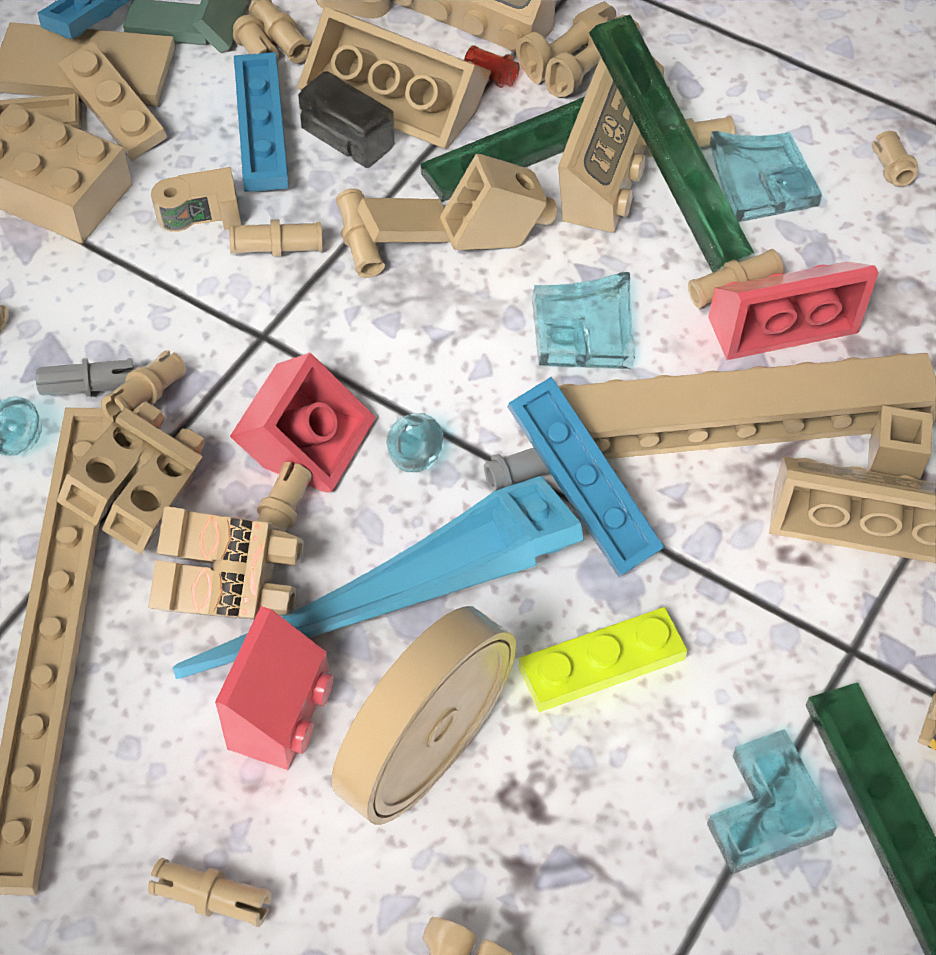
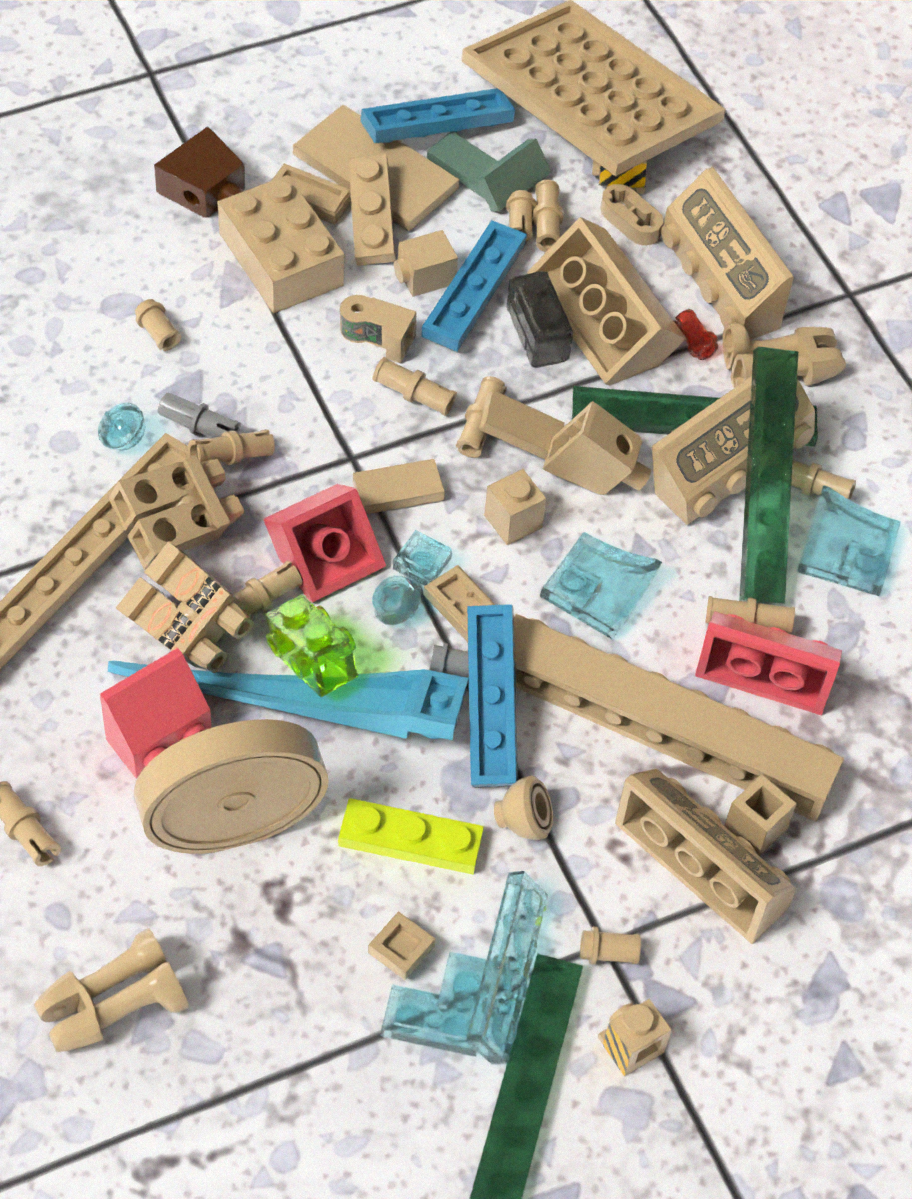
camera: 30 degrees right, 0 degrees up
(202, 122) = (426, 263): none -> tan brick
(333, 333) = (399, 486): none -> tan tile
(375, 529) = (311, 645): none -> clear neon green brick
(408, 390) = (422, 558): none -> clear light blue plate
(458, 295) = (515, 506): none -> tan brick
(478, 412) = (452, 595): none -> tan plate
(683, 771) = (401, 945): none -> tan plate
(690, 568) = (526, 809): none -> tan brick
(809, 743) = (507, 968): none -> clear light blue plate
(855, 654) = (609, 946): none -> tan pin

